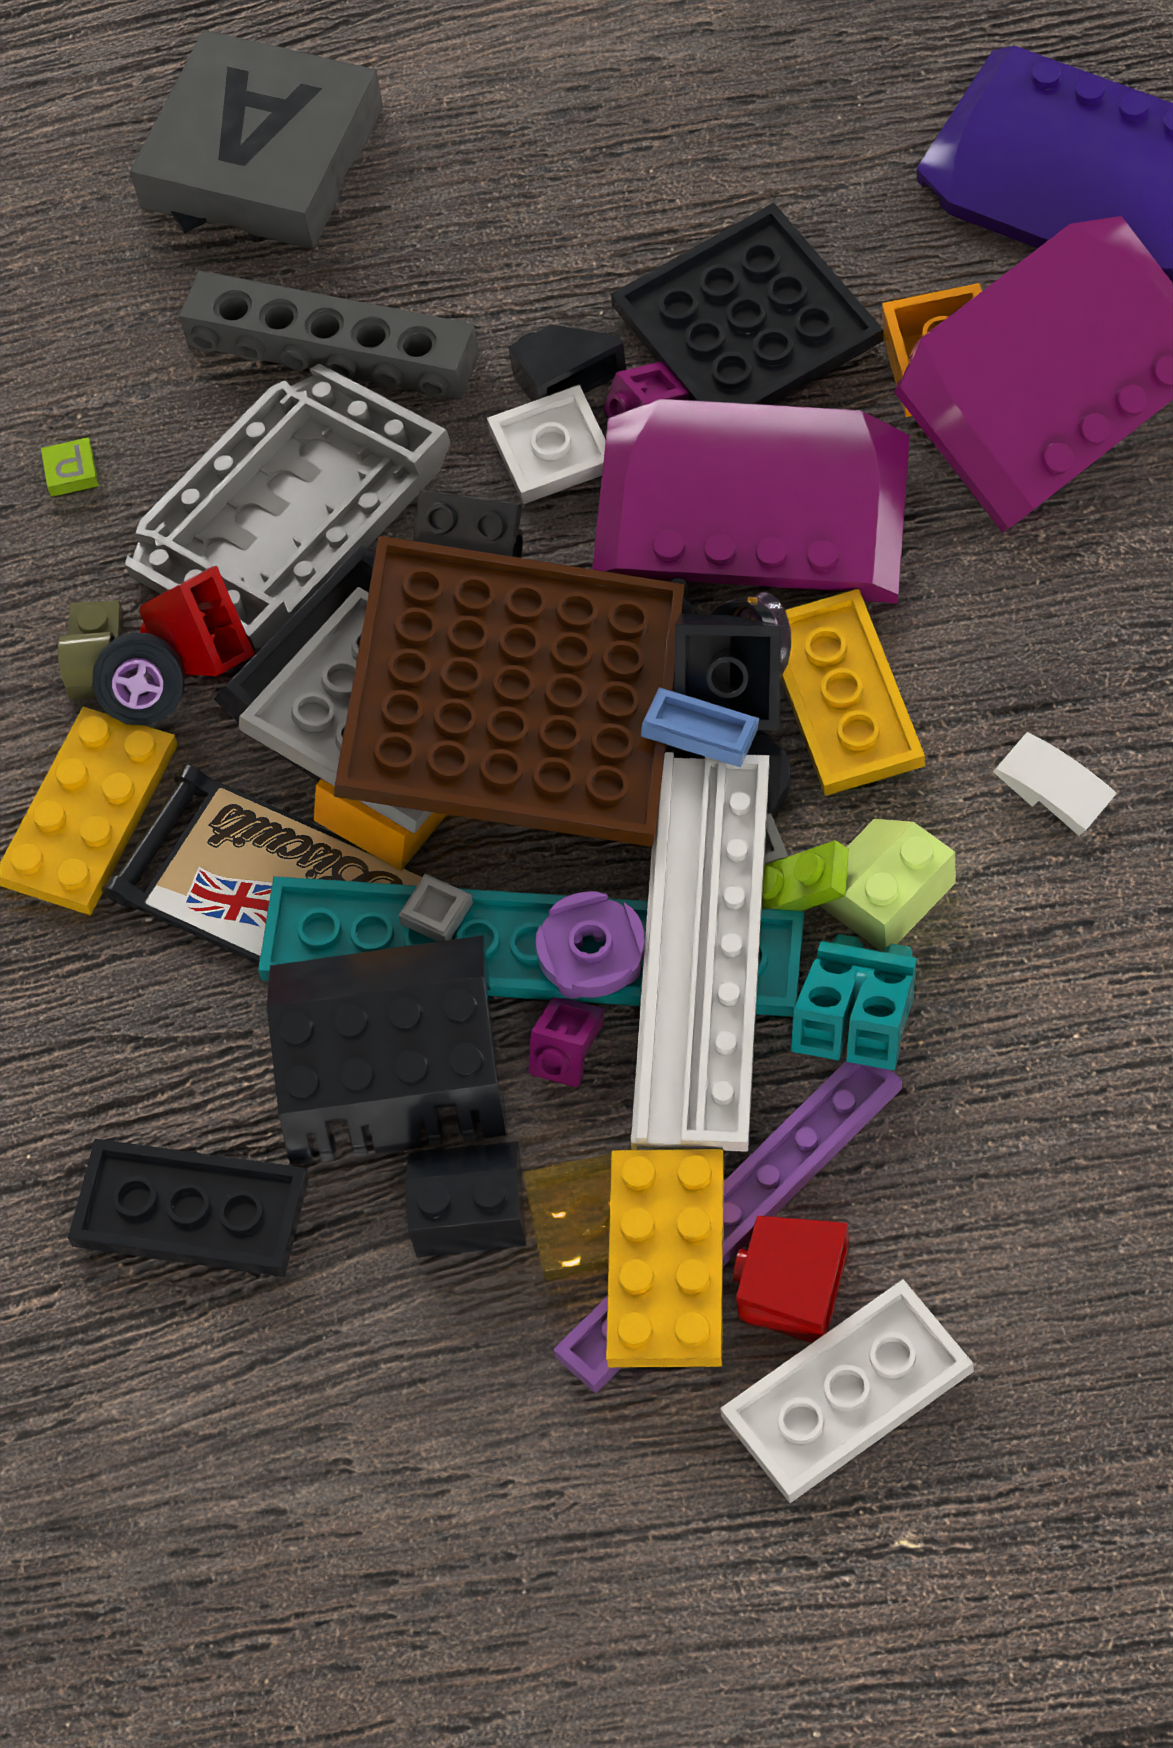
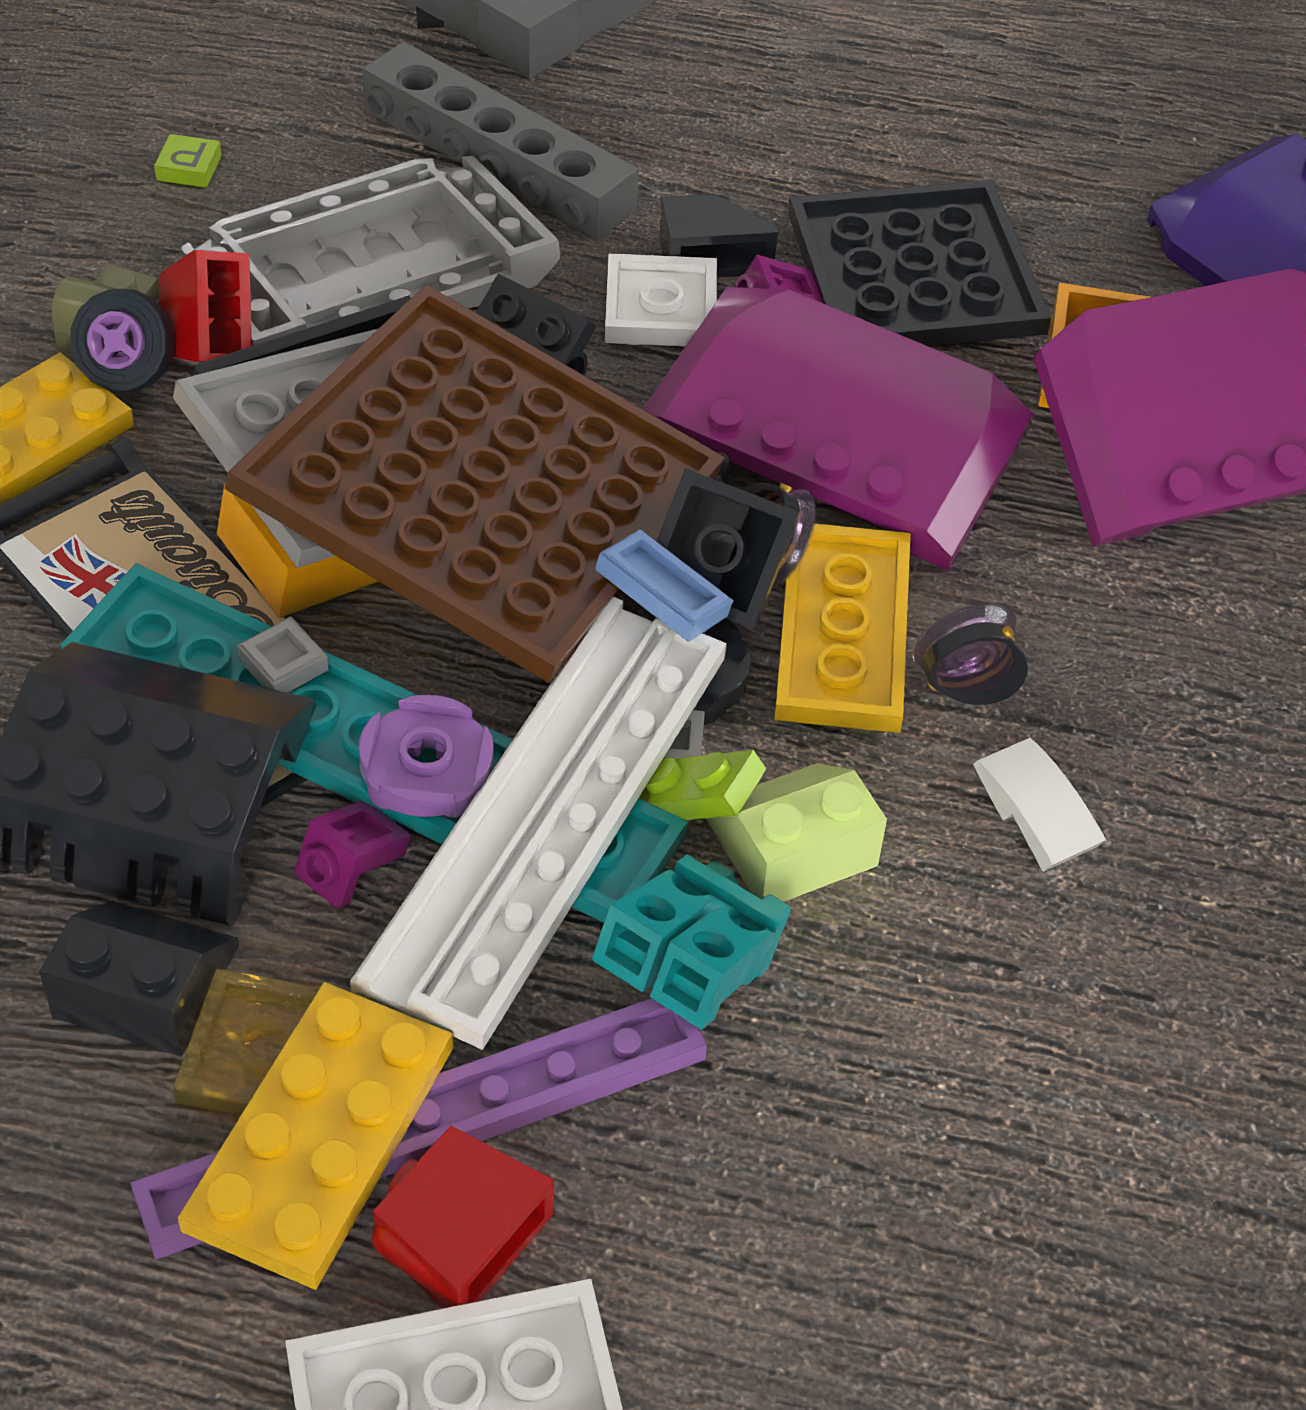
camera: 10 degrees right, 10 degrees down
(956, 682) = (973, 655): none -> piece

